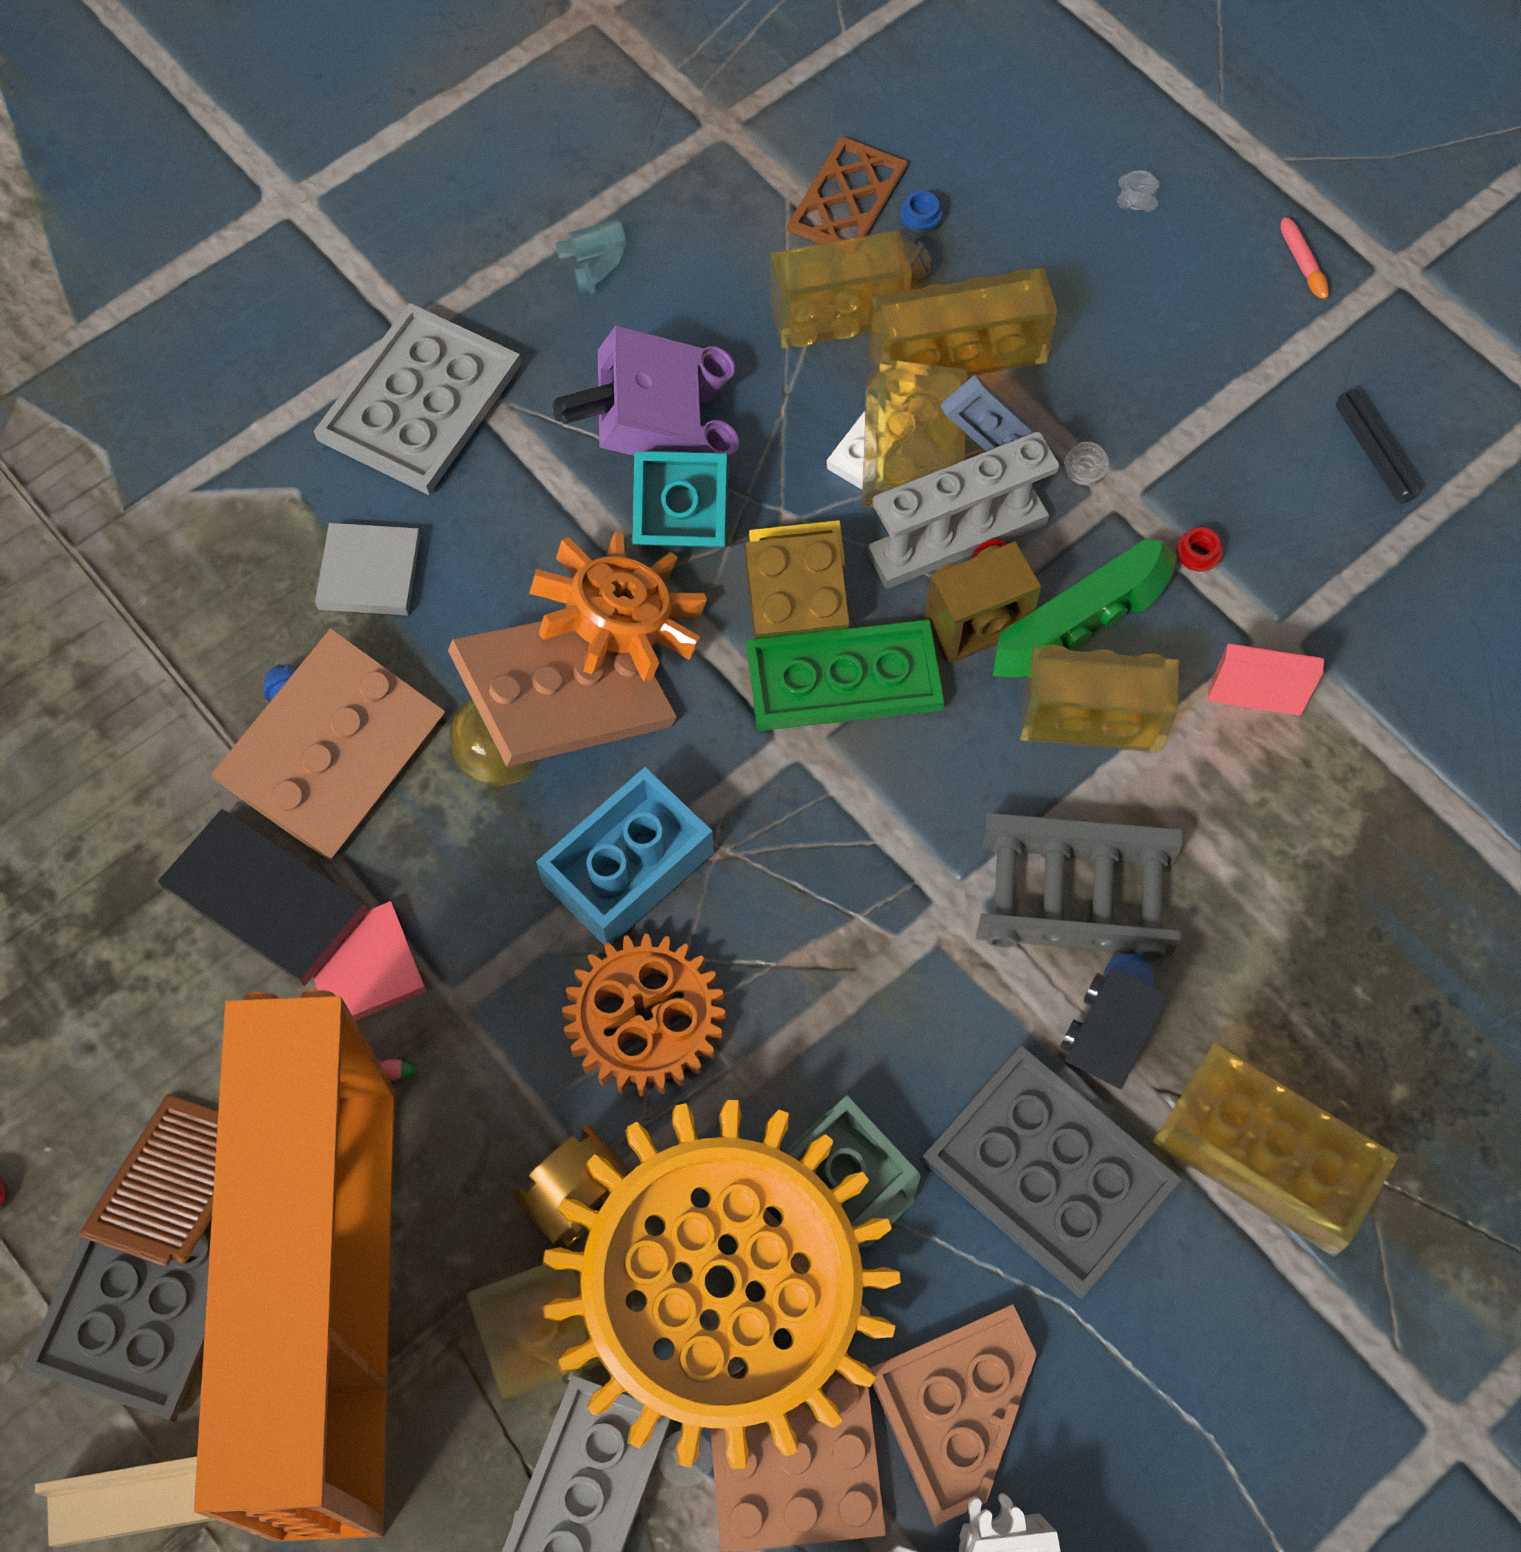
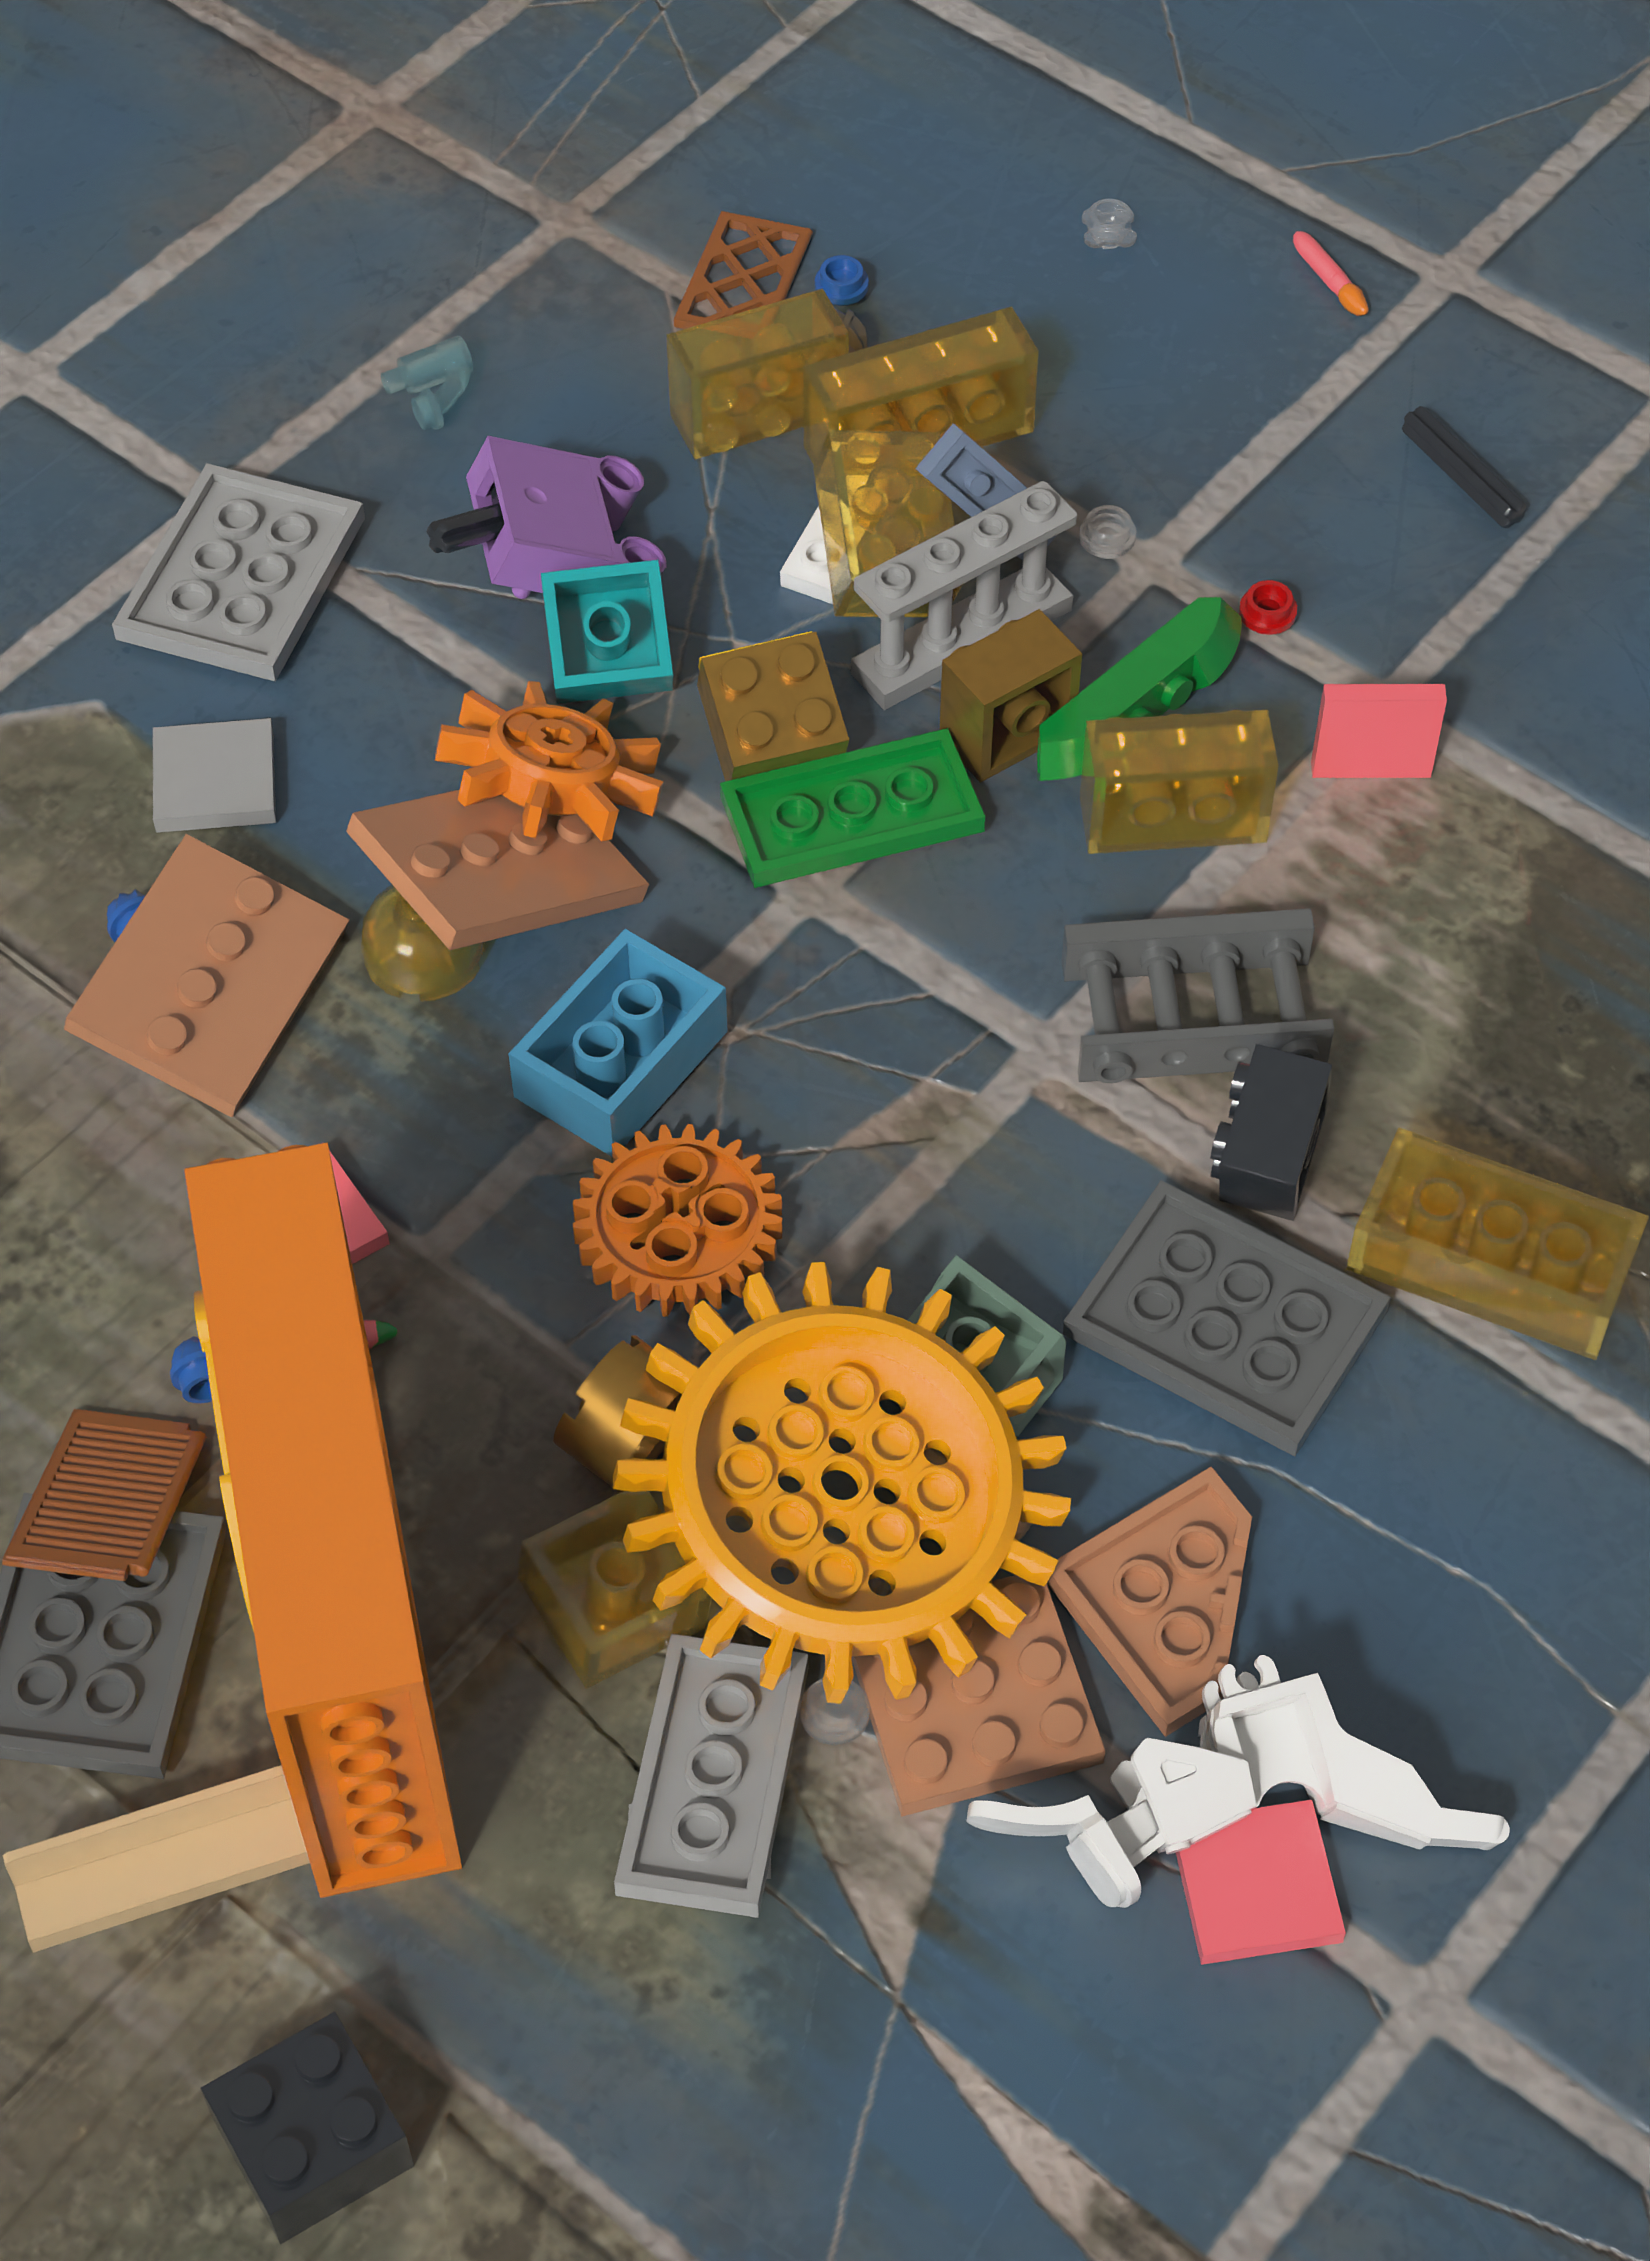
camera: 10 degrees left, 10 degrees down
(263, 896) = (132, 1149): black tile -> none

